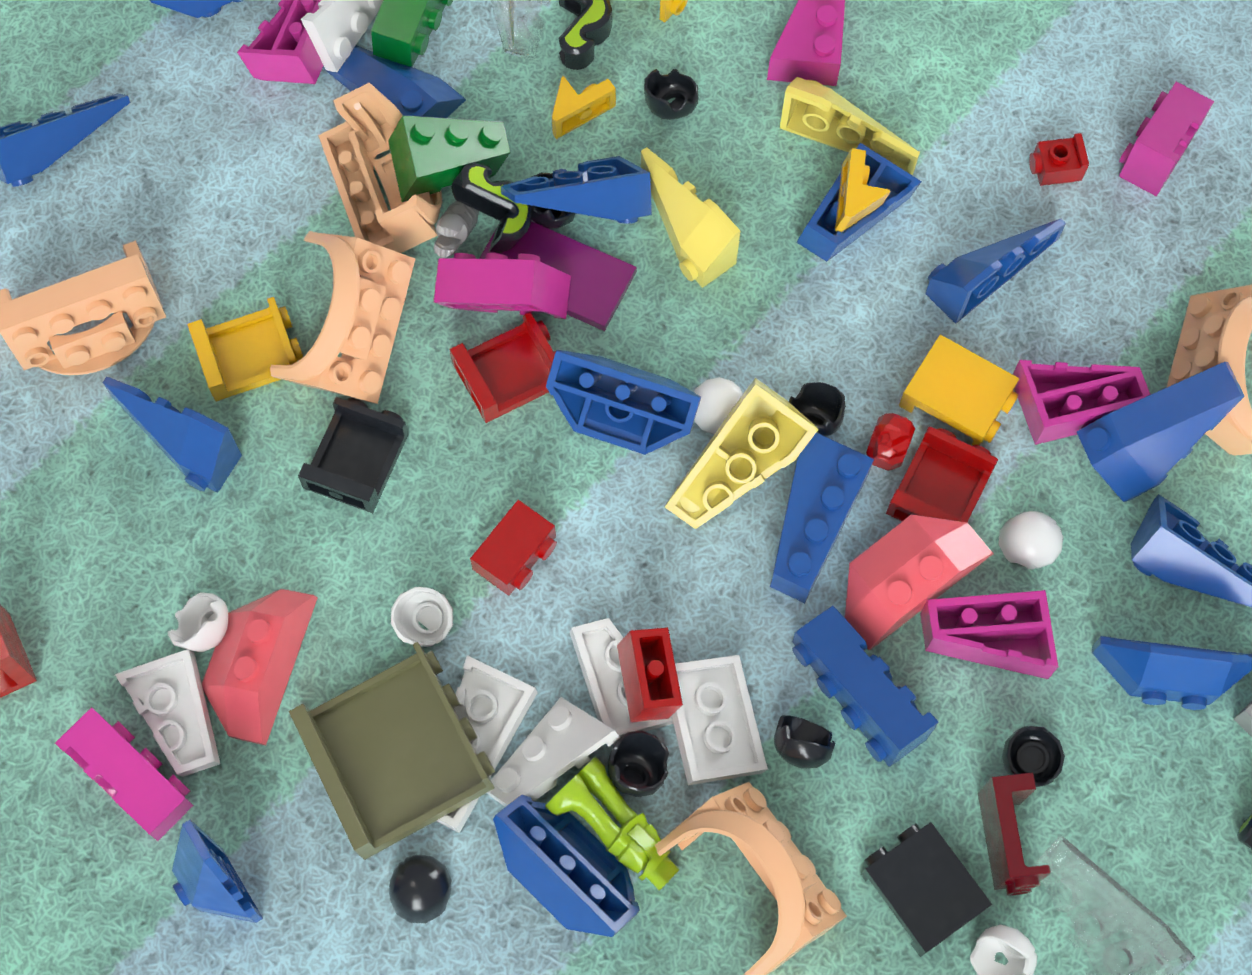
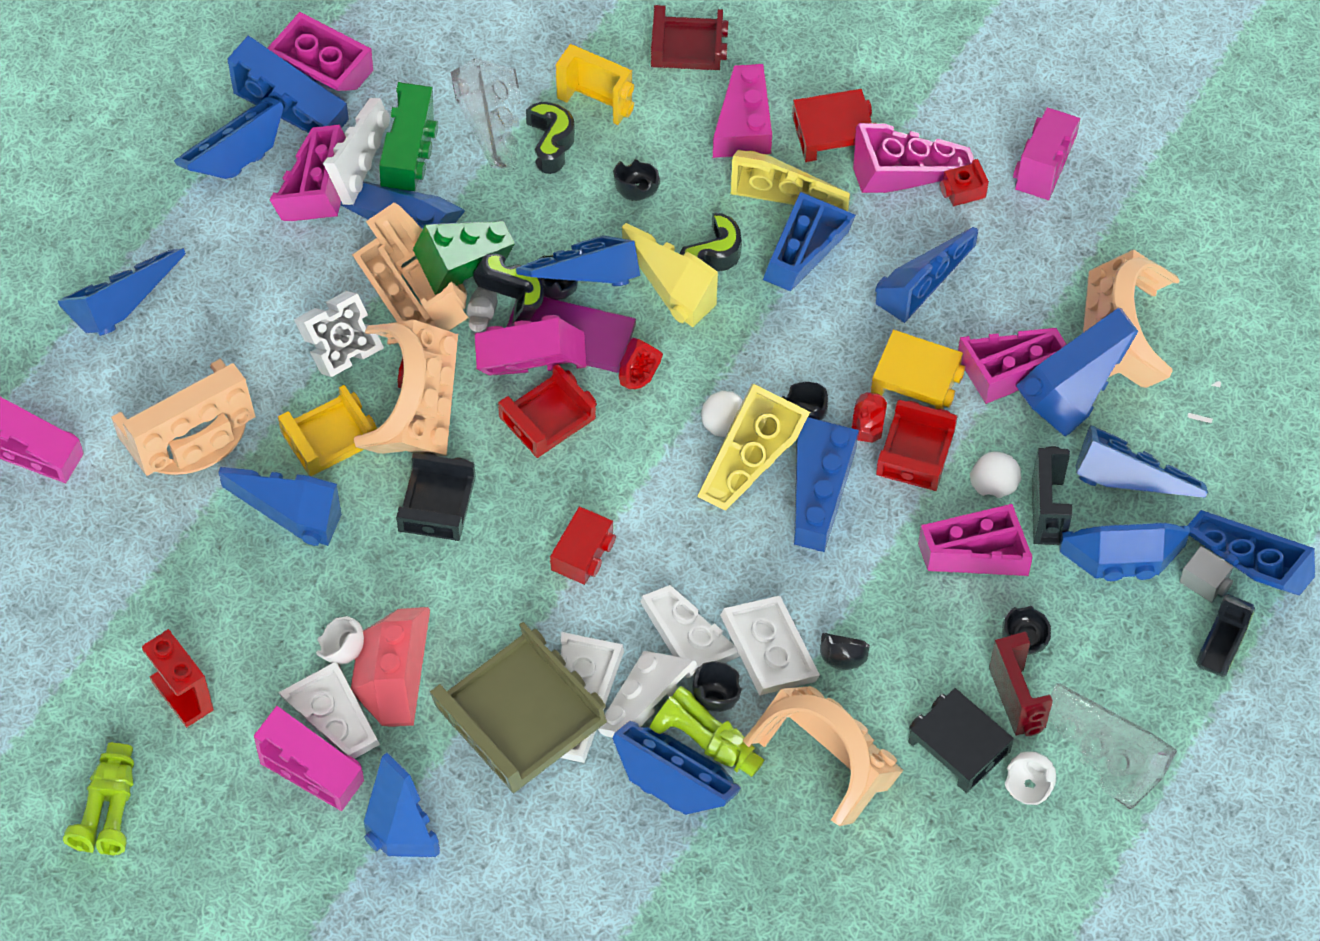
camera: 10 degrees left, 10 degrees down
(279, 231) = (338, 333): none -> white brick
(420, 888) = (561, 809): black hair -> none
(429, 609) = (522, 602): white hair -> none
(575, 110) = (561, 203): yellow slope -> none
(620, 402) = (645, 422): blue wedge -> none
(627, 327) = (638, 364): none -> red rock
(649, 674) = (712, 615): red brick -> none
(750, 200) = (722, 251): none -> black animal
(855, 196) = (805, 233): yellow slope -> none
(862, 687) = (883, 602): blue wedge -> none
(907, 569) = (895, 510): coral wedge -> none
(917, 60) = (829, 120): none -> red panel
(987, 120) = (900, 161): none -> dark pink wedge
(1083, 616) = (1048, 517): none -> black panel

